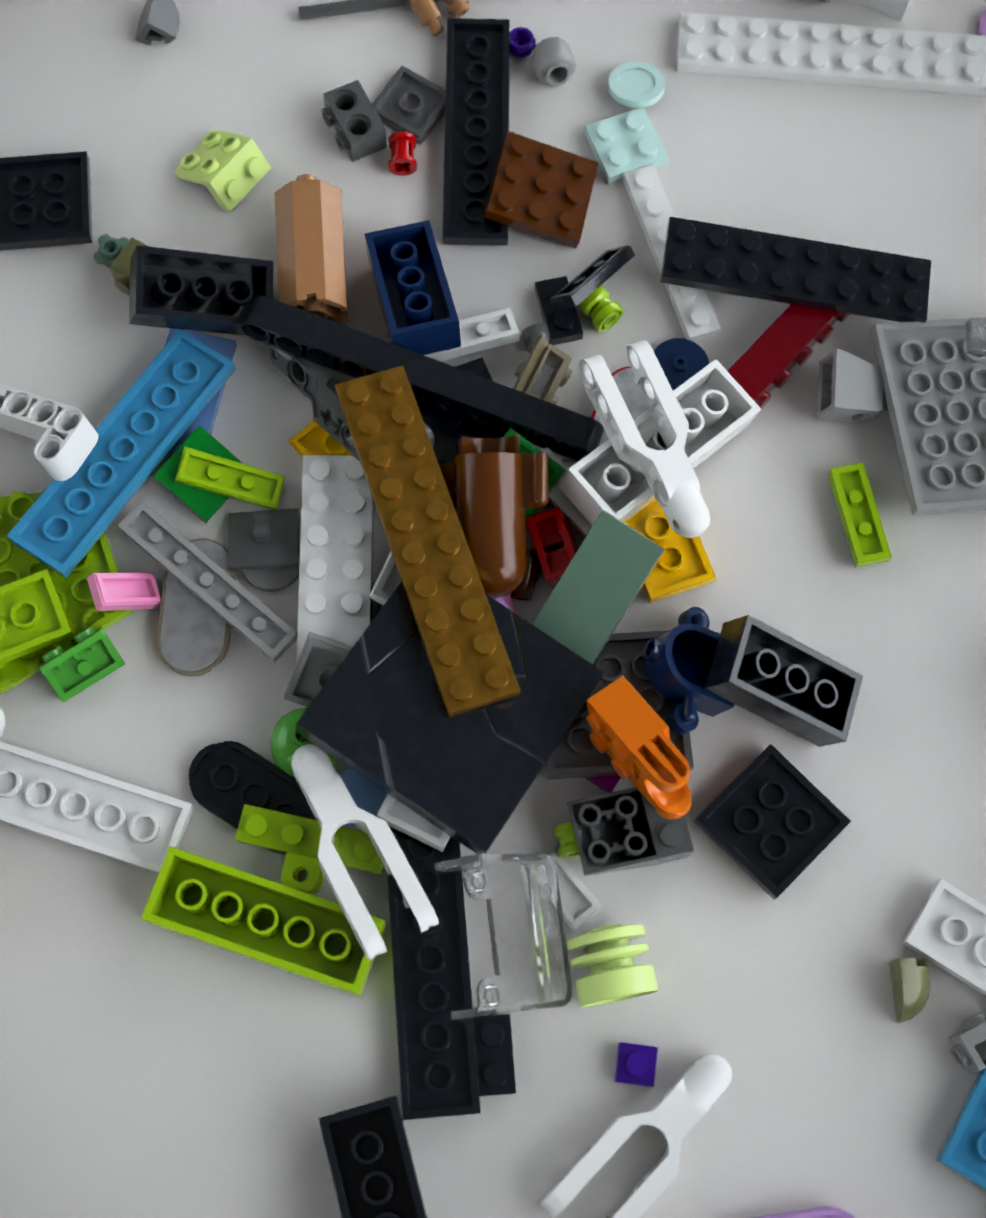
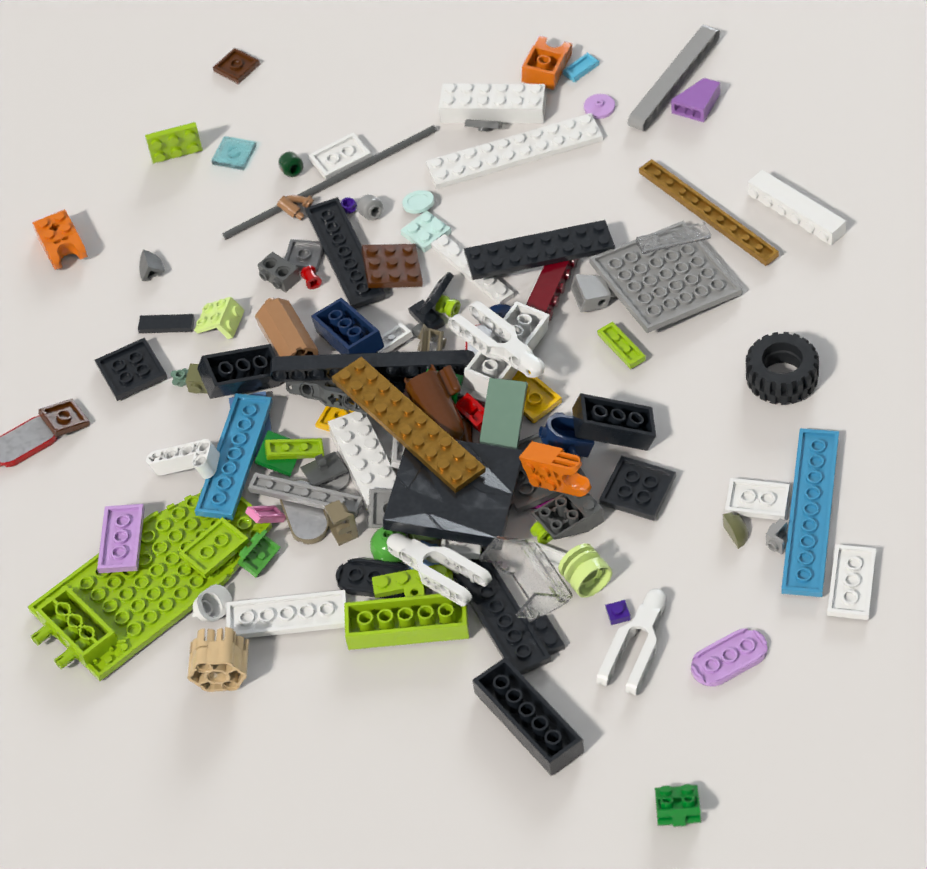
camera: 10 degrees left, 20 degrees down
(136, 138) = (166, 323): none -> black tile
(238, 666) = (341, 522): none -> dark tan window

